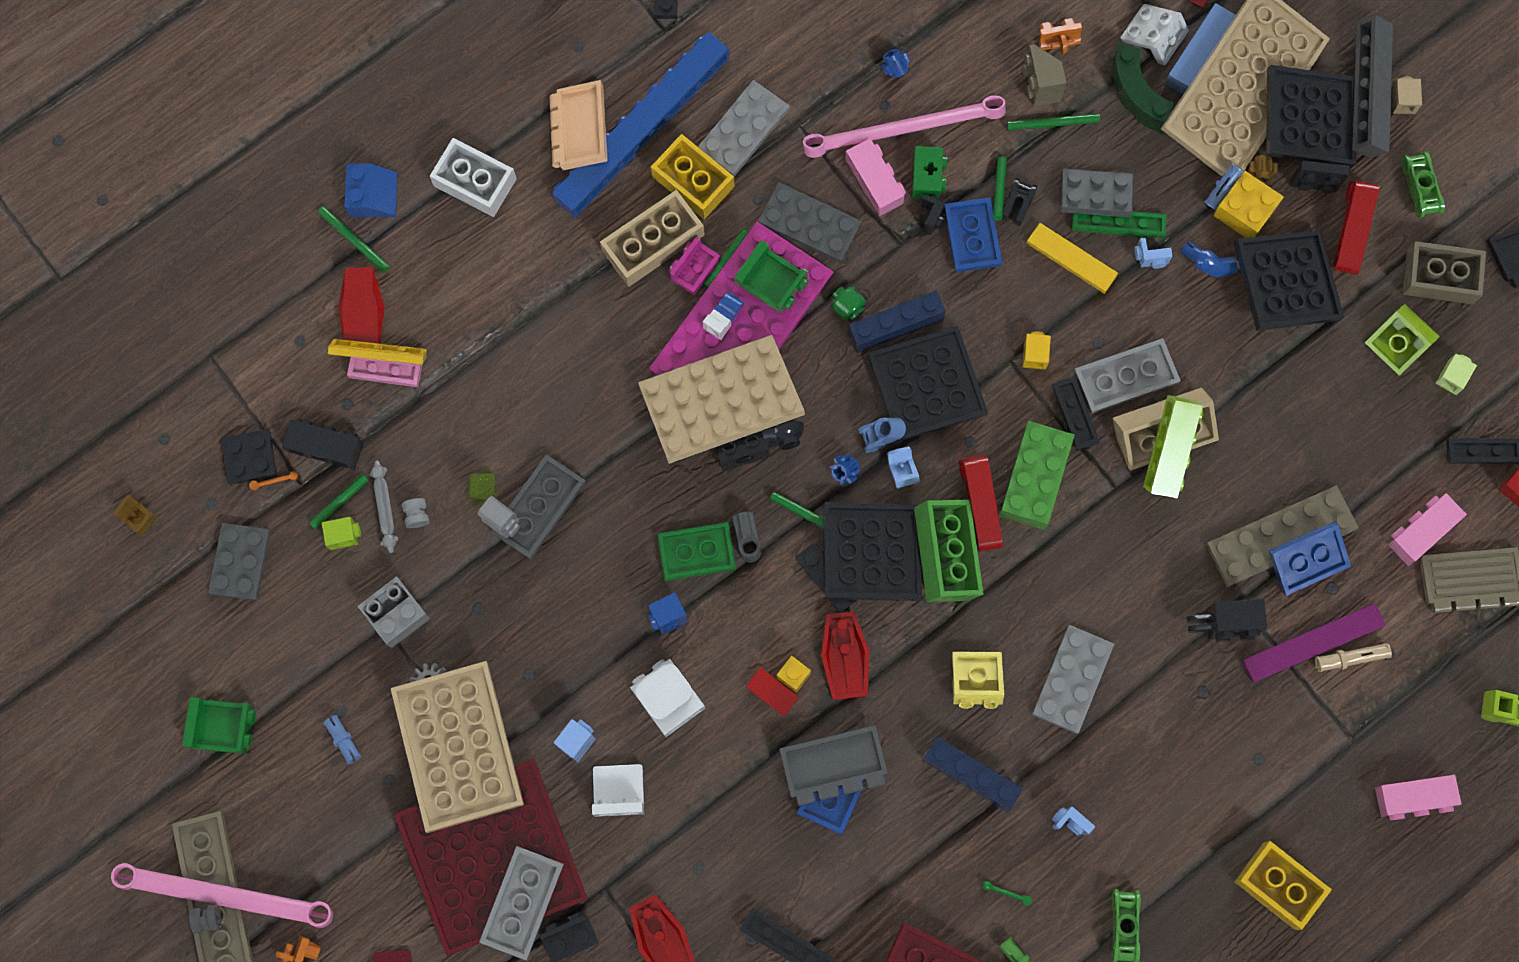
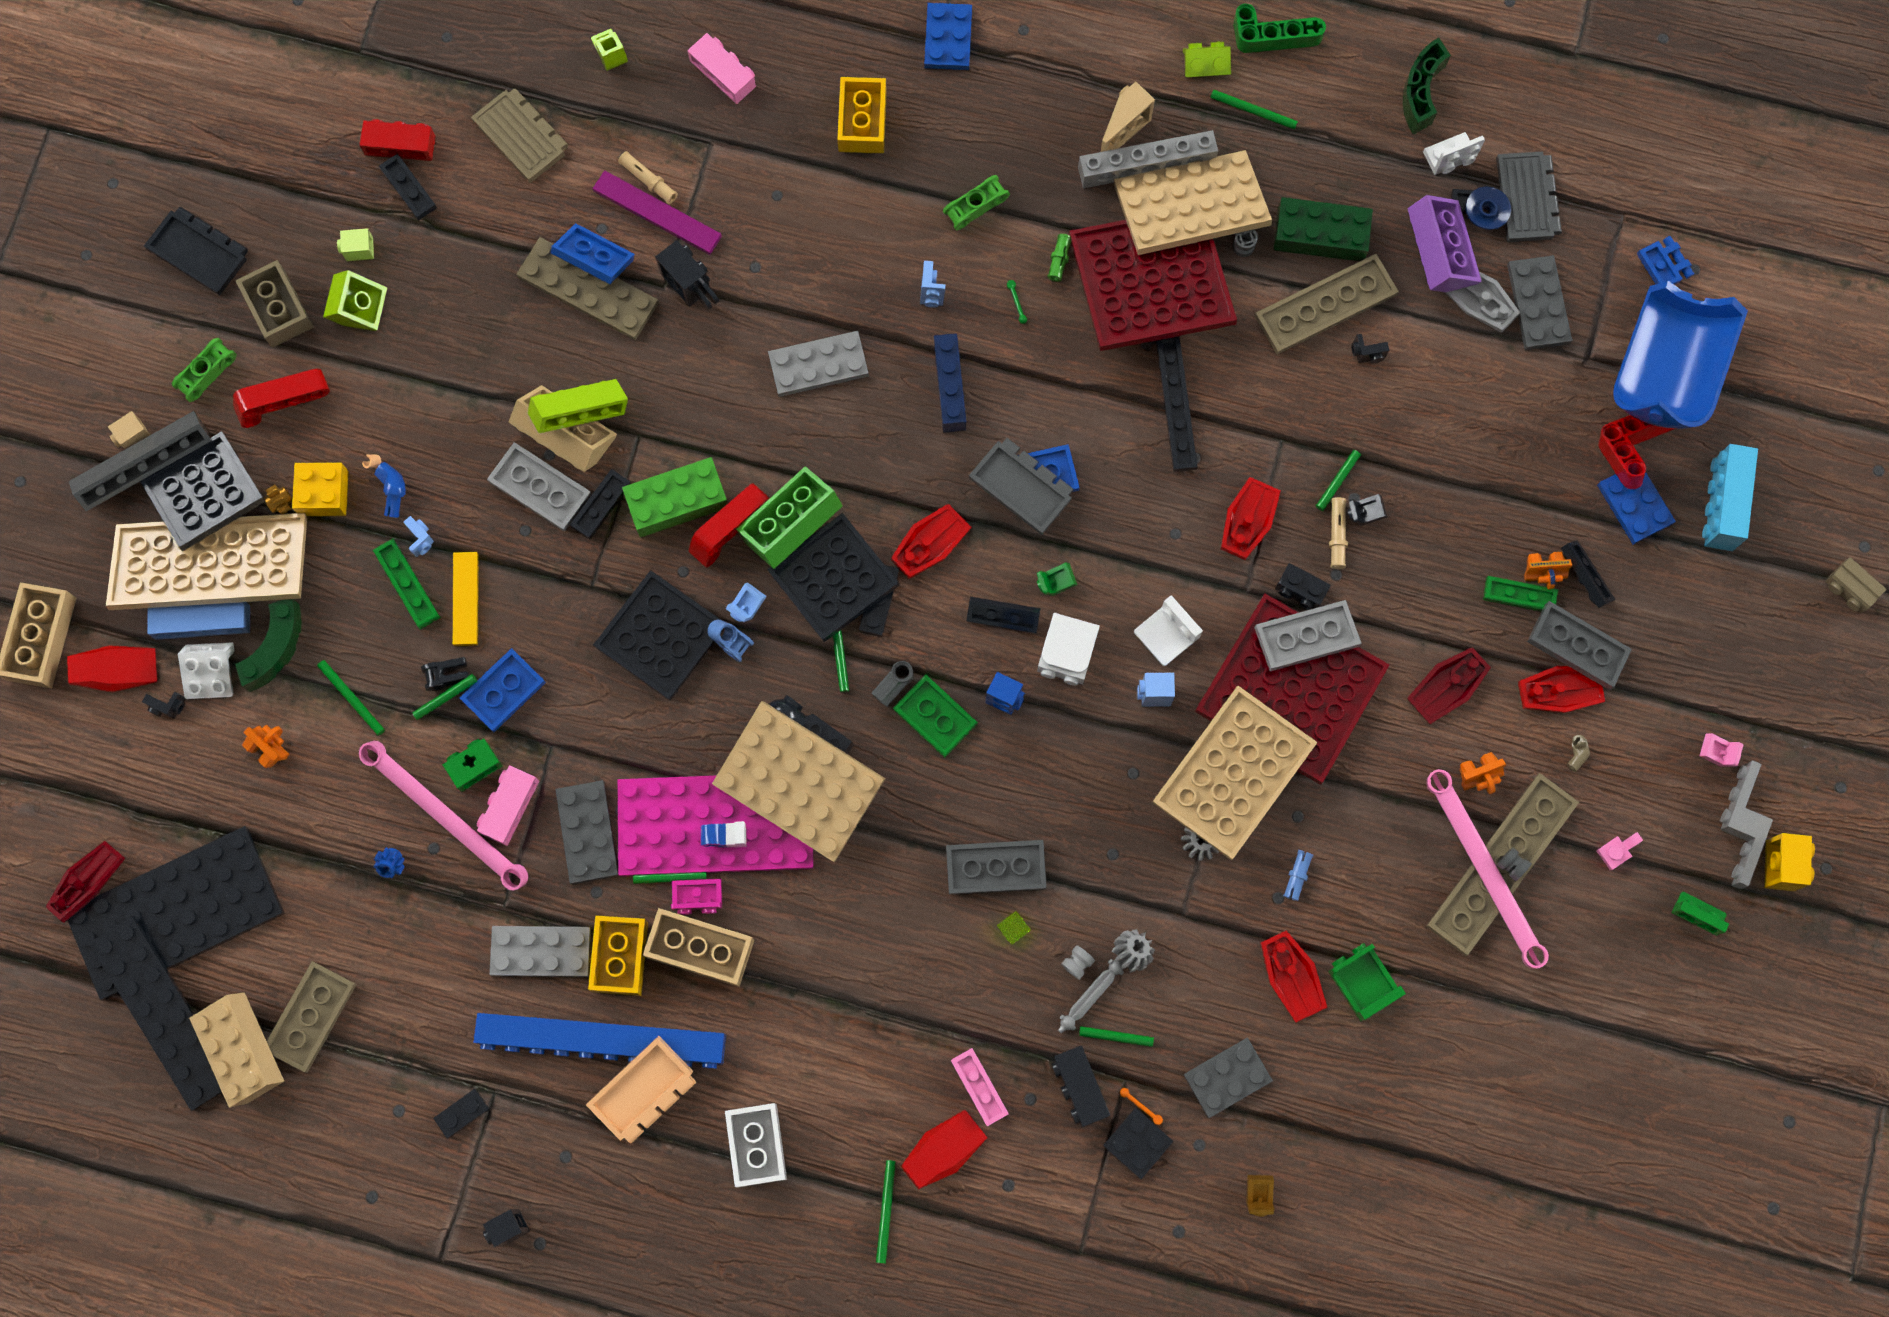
camera: 130 degrees left, 0 degrees up
(271, 672) = (1293, 976): none -> red piece
(341, 533) = (1140, 1010): lime brick -> none
(370, 191) = (832, 1228): blue slope -> none
(377, 351) = (969, 1104): yellow tile -> none
(393, 612) = (1170, 912): light grey slope -> none
(395, 556) = (1133, 950): none -> light grey gear
(499, 517) = (1032, 880): light grey brick -> none
(732, 732) = (1056, 579): none -> green bracket
(736, 667) = (1003, 614): none -> black plate
(771, 278) = (662, 819): green panel -> none
(772, 692) = (1001, 576): red tile -> none
(793, 674) = (975, 566): yellow brick -> none
(845, 469) = (781, 646): blue gear -> none
(848, 303) = (637, 746): green head -> none
(896, 321) = (625, 695): dark blue brick -> none
(936, 207) = (510, 730): black bracket -> none
(977, 679) = (873, 429): light yellow plate -> none
(1036, 350) = (568, 569): yellow brick -> none
(1044, 76) = (316, 728): dark tan slope -> none
(1096, 193) = (393, 617): dark grey plate -> none
(1232, 175) = (316, 518): medium blue pin -> none
(1288, 280) = (366, 415): black plate -> none
(1319, 176) = (254, 445): black plate -> none
(1426, 528) = (504, 188): bright pink brick -> none

